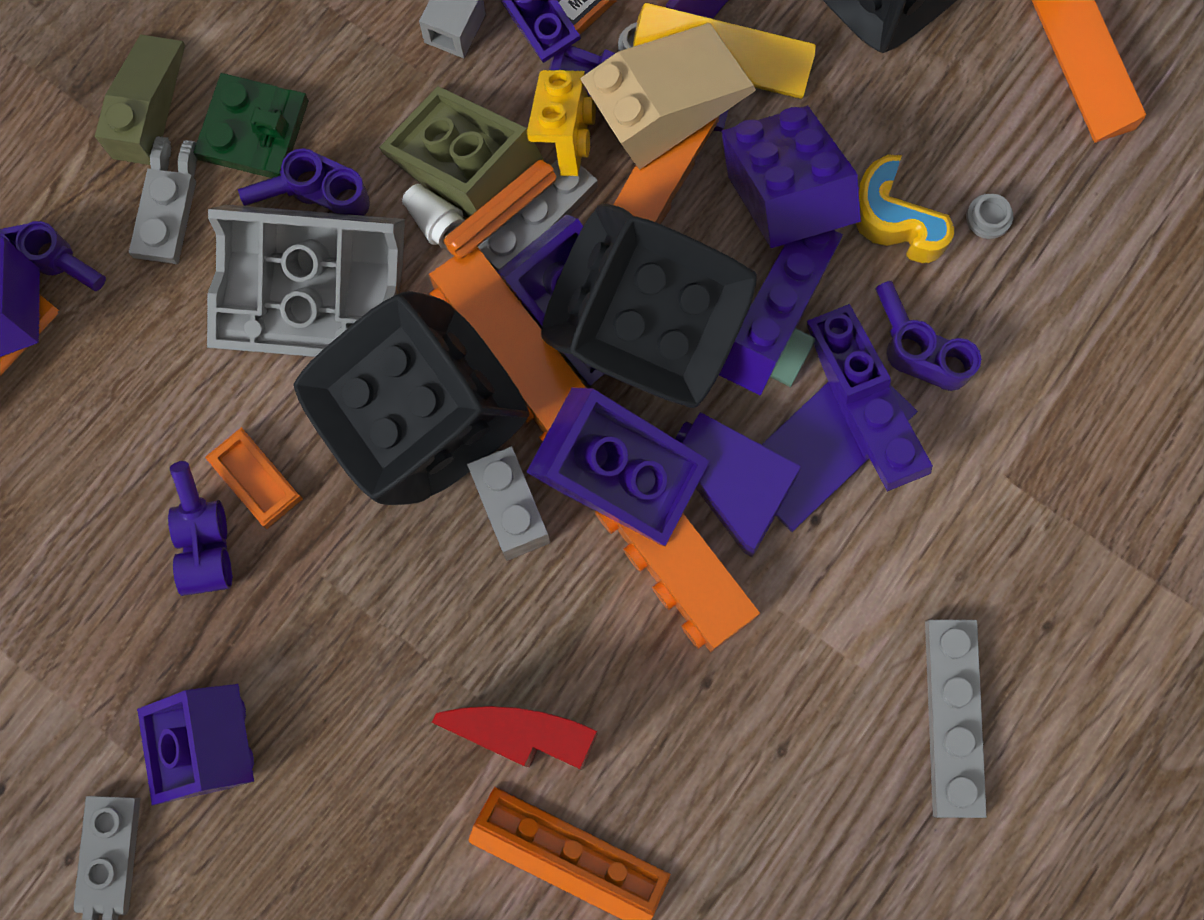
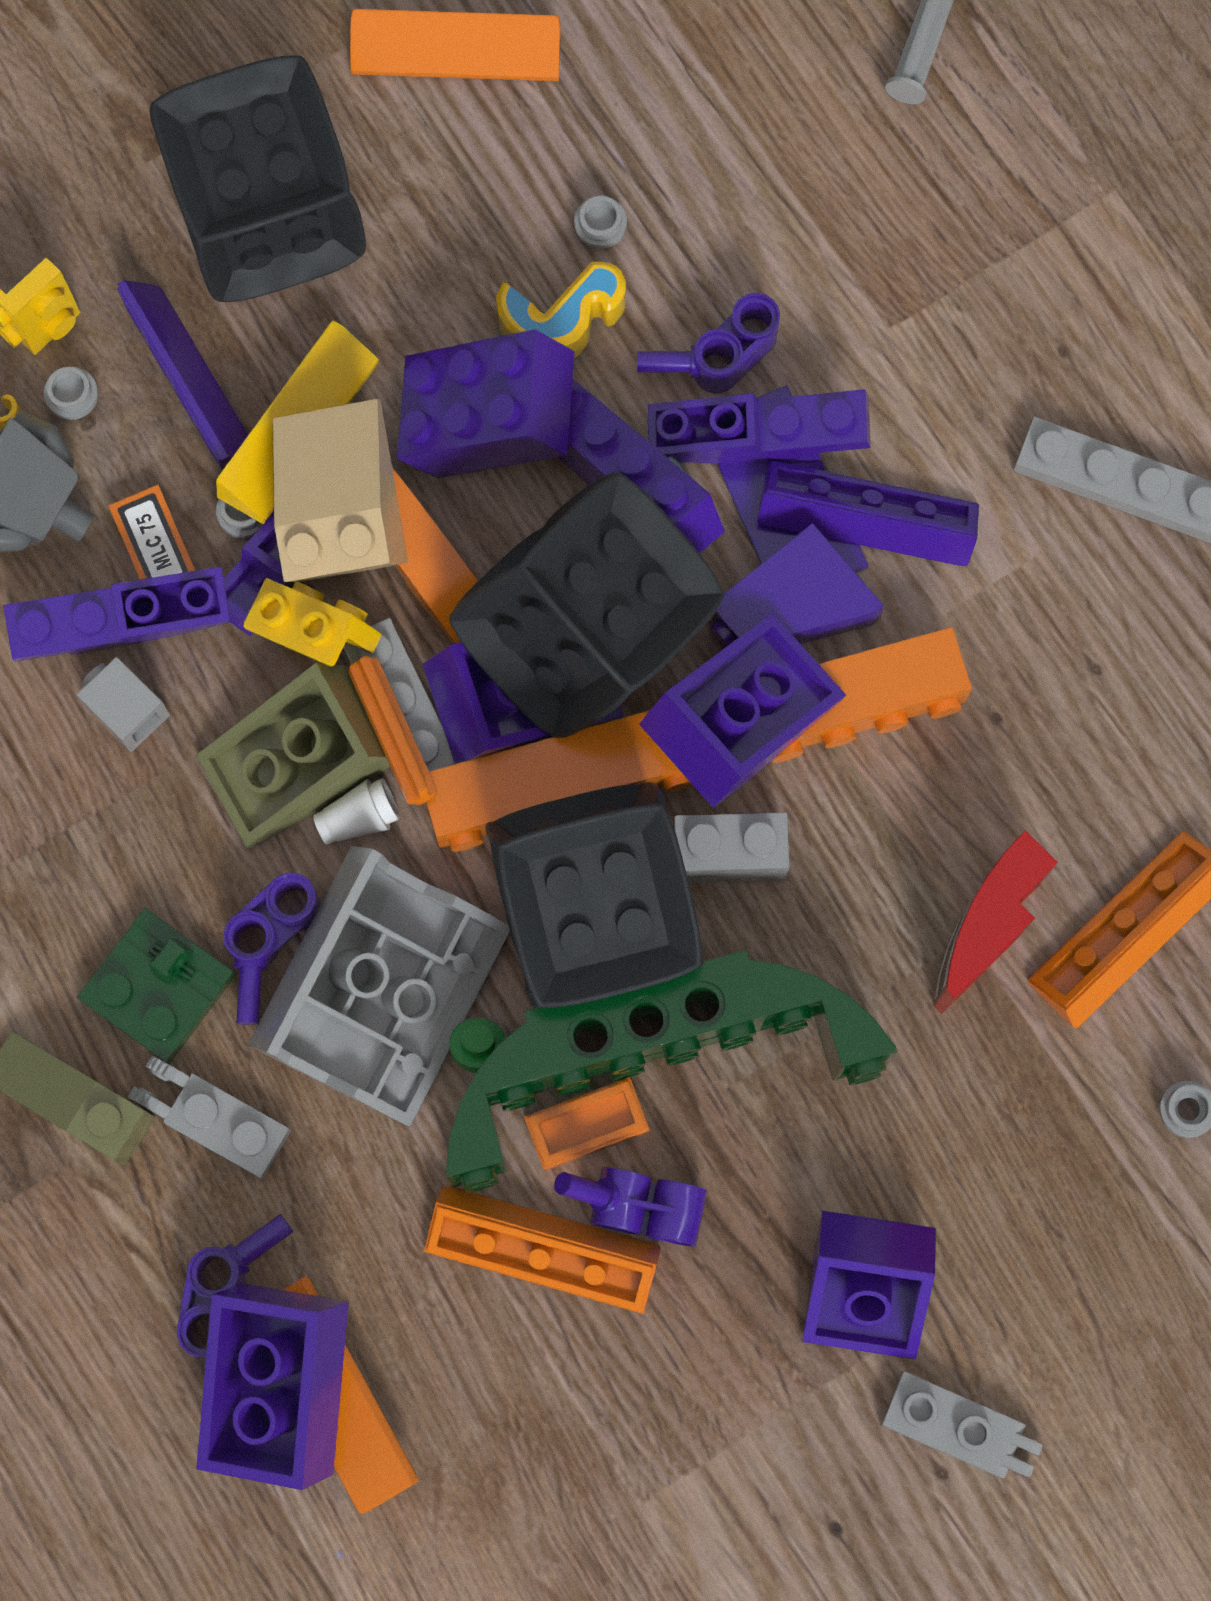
camera: 70 degrees left, 0 degrees up
(144, 479) = (542, 1248): none -> orange slope
(281, 370) = (474, 1042): none -> green plate
(381, 553) = (745, 1000): none -> dark green slope
(836, 514) = (869, 513): none -> dark purple slope

